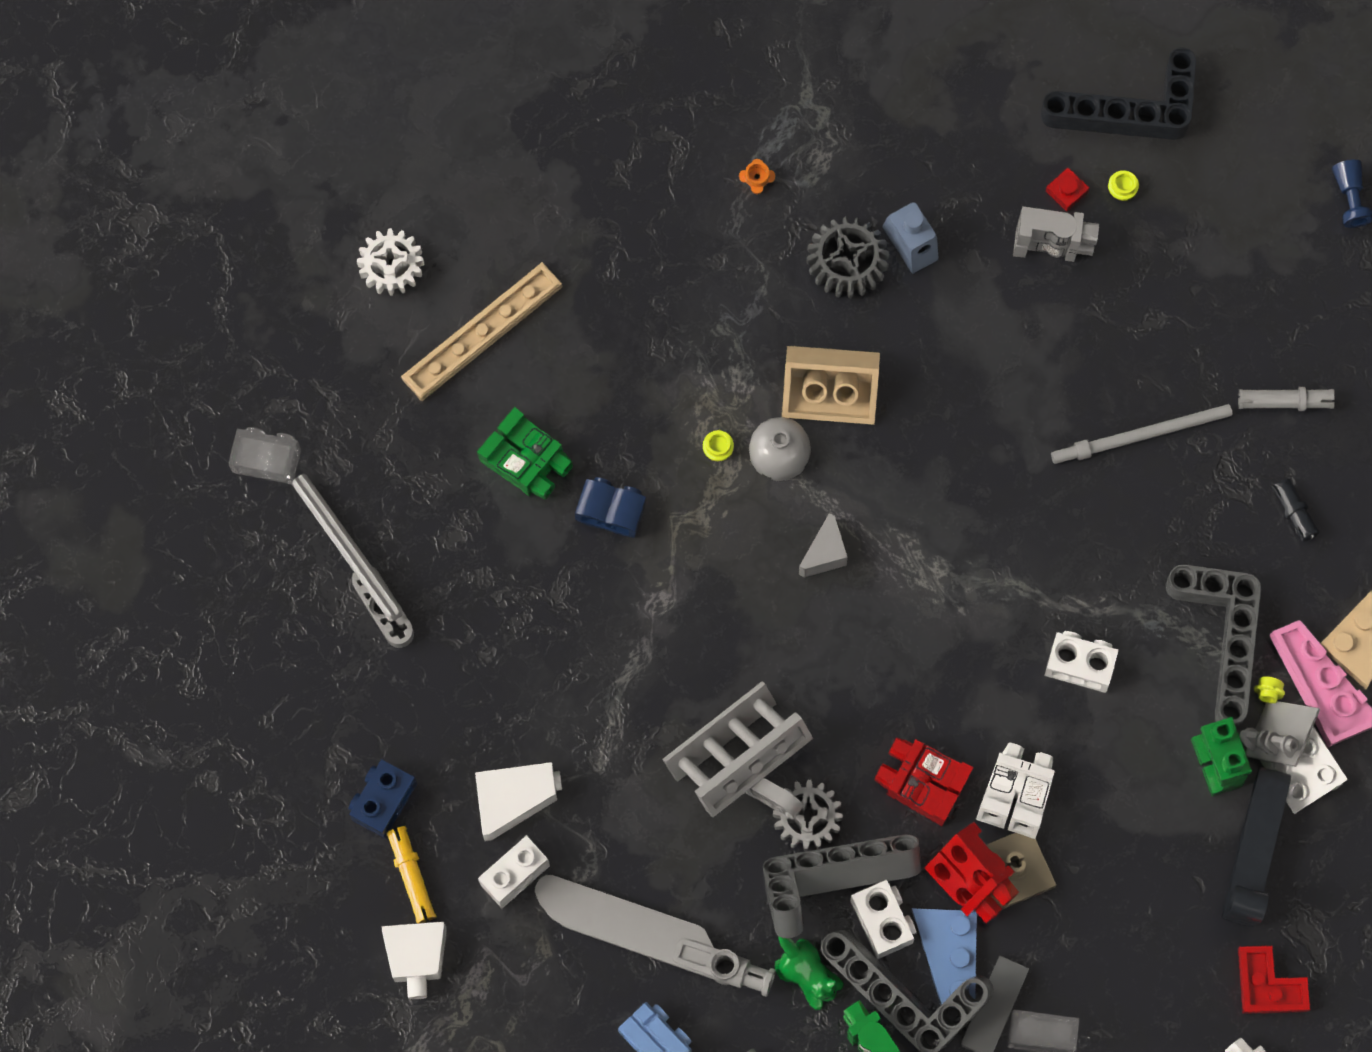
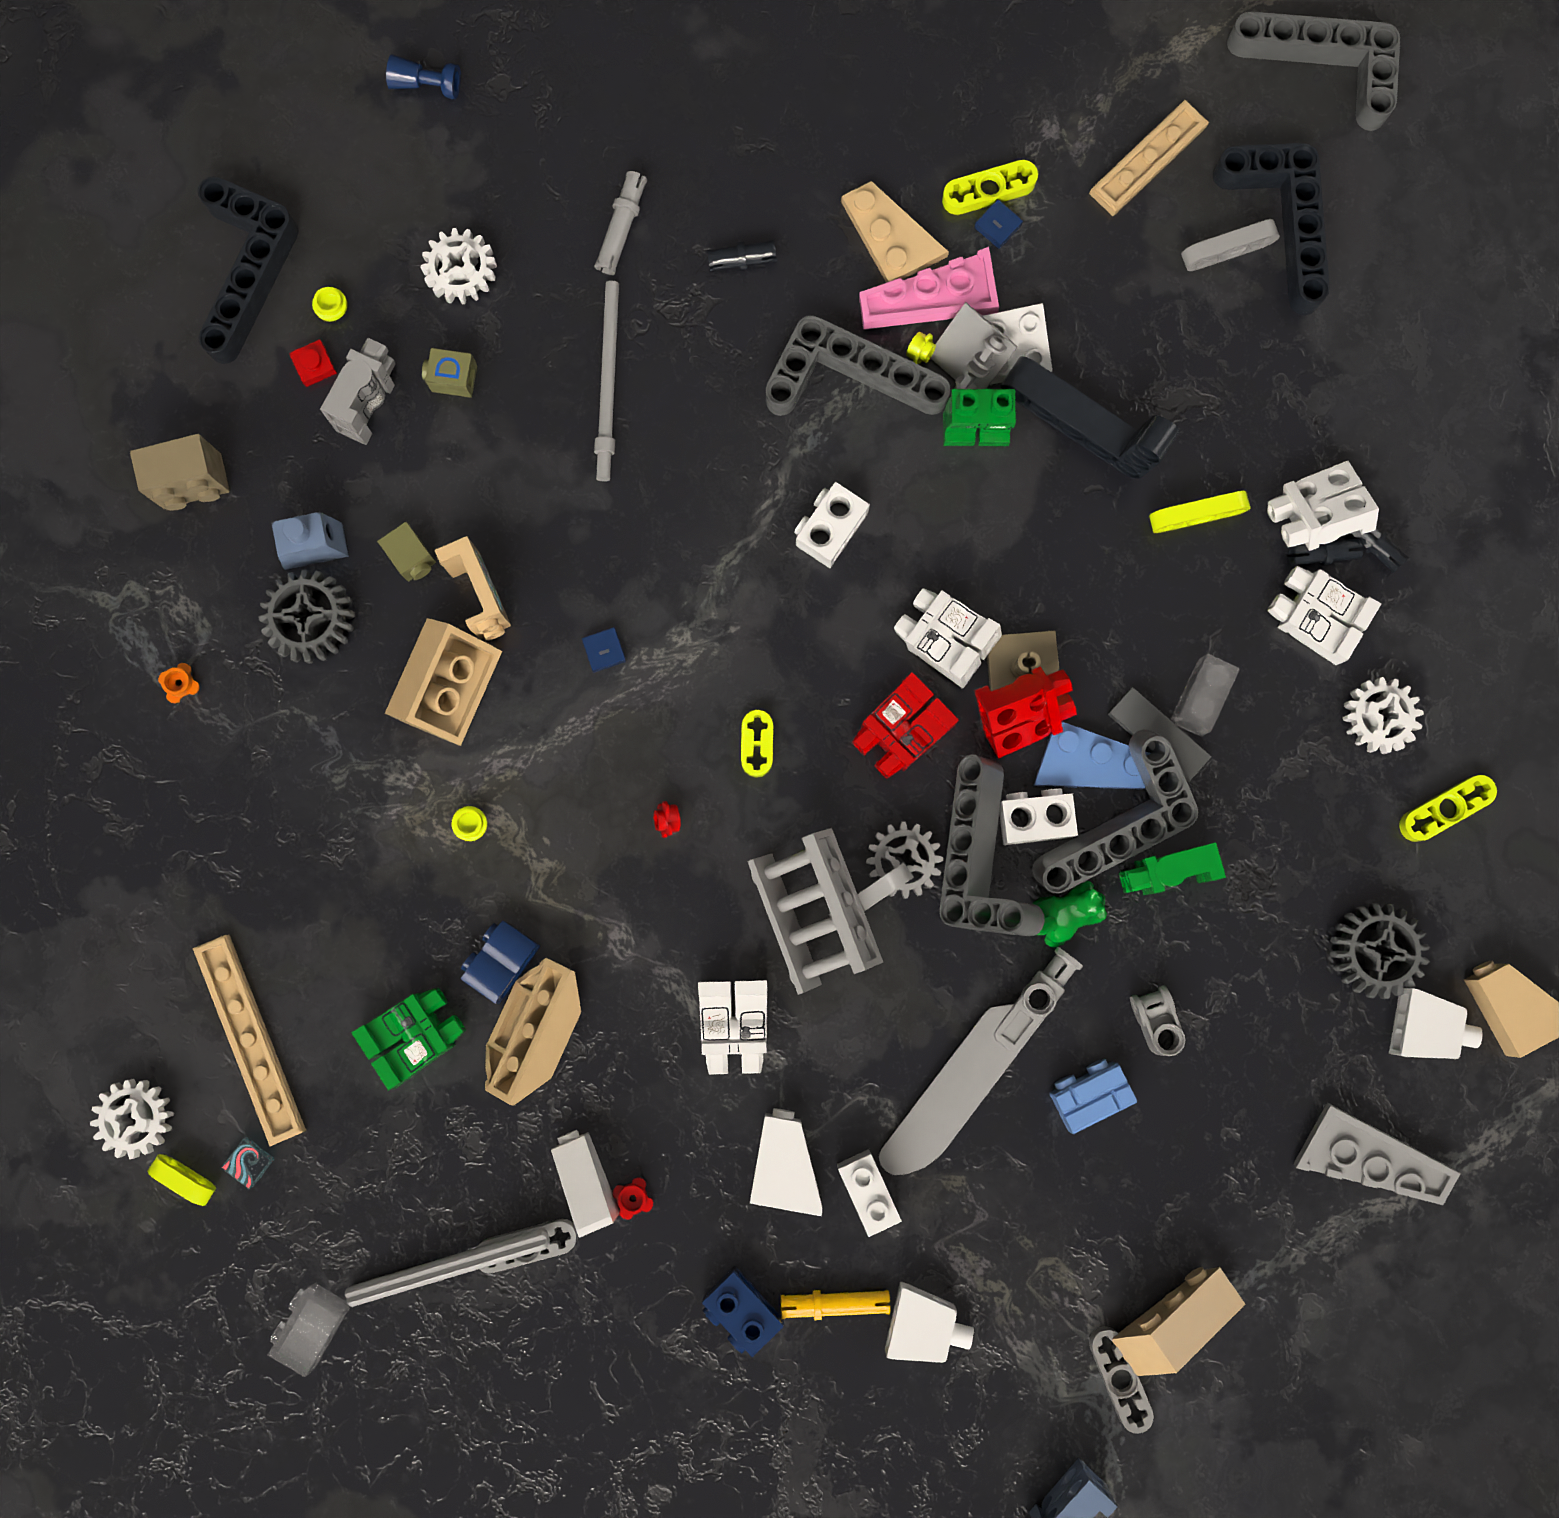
camera: 75 degrees left, 10 degrees up
(353, 317) = (181, 1179): none -> neon yellow beam
(382, 364) = (248, 1163): none -> tile
(448, 671) = (623, 1194): none -> red plate
(449, 634) = (584, 1183): none -> white slope
(561, 552) = (532, 1031): none -> tan wedge
(621, 714) = (731, 1034): none -> white hips
(776, 604) = (667, 819): none -> red plate
(779, 448) = (495, 759): light grey cylinder -> none
(826, 551) = (625, 745): light grey slope -> none
(865, 653) = (748, 743): none -> neon yellow beam
(904, 507) = (603, 649): none -> dark blue tile
(930, 319) = (407, 552): none -> olive brick
(932, 117) = (180, 472): none -> dark tan brick
(939, 372) = (464, 557): none -> tan panel
(1099, 302) = (450, 372): none -> olive brick
(1210, 283) = (457, 280): none -> white gear
(1210, 981) = (1199, 511): none -> neon yellow beam
(1263, 991) = (1219, 465): red plate -> none

